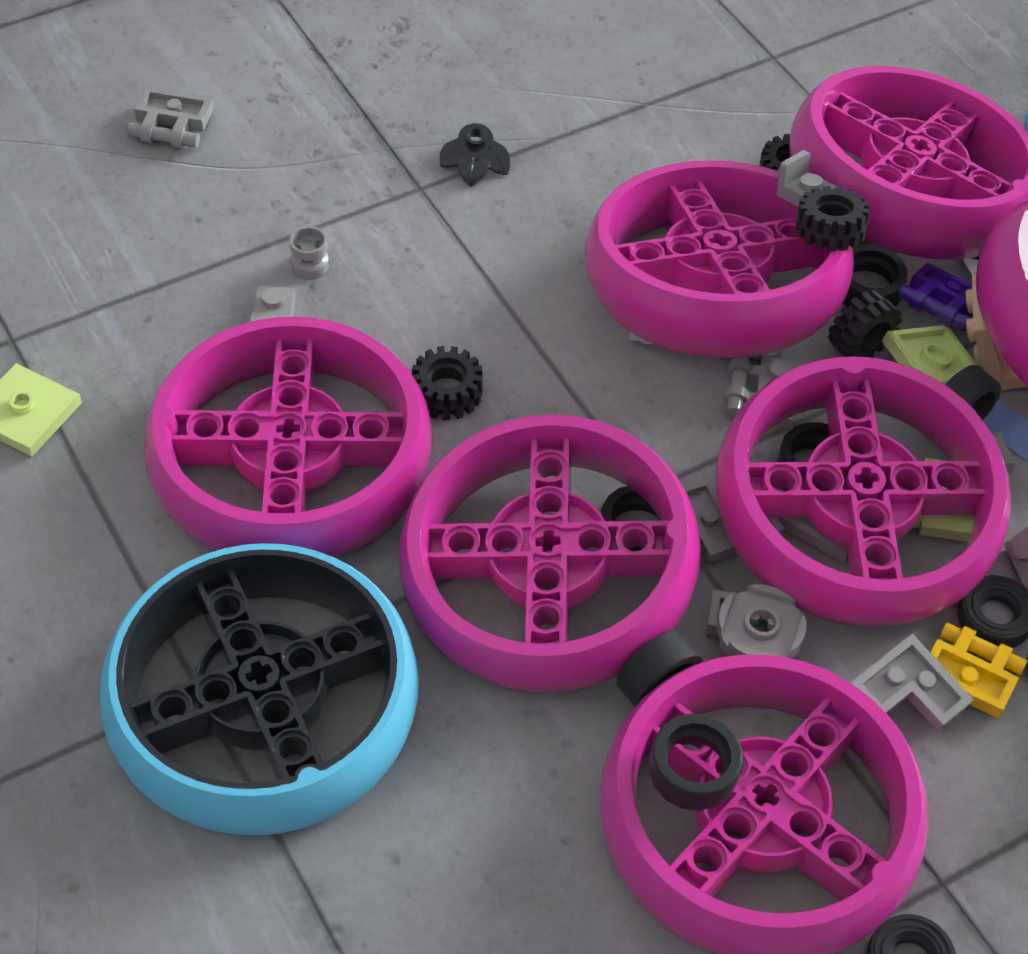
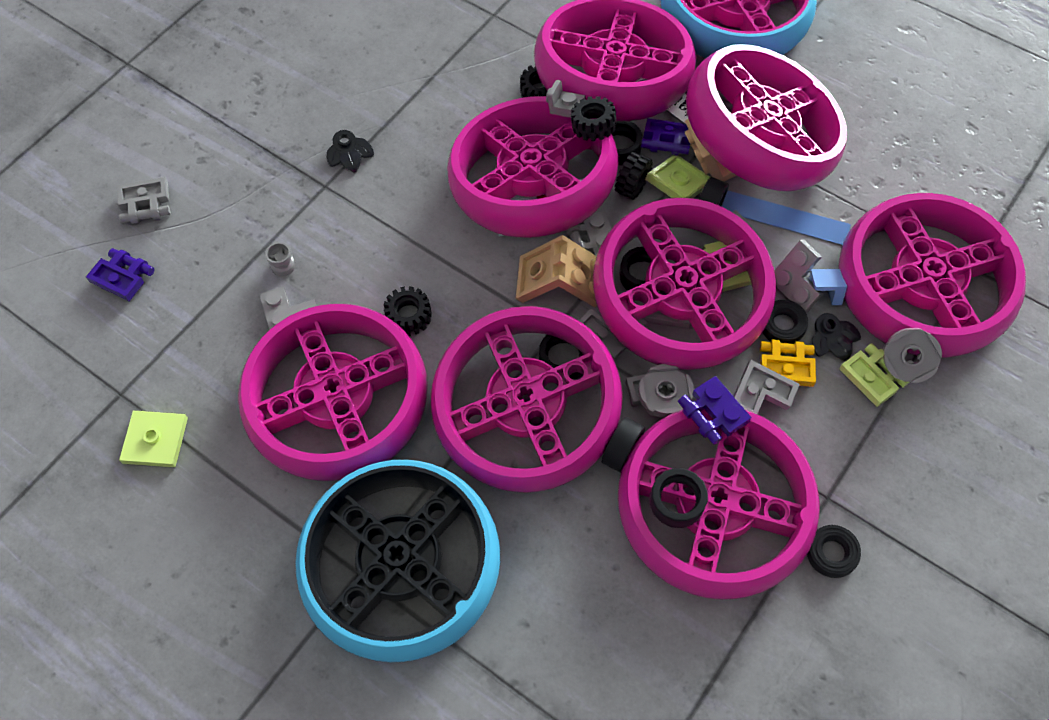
camera: 20 degrees left, 10 degrees up
(84, 199) = (116, 279): none -> dark purple plate
(691, 399) = (556, 265): none -> tan bracket
(826, 667) = (721, 407): none -> dark purple plate

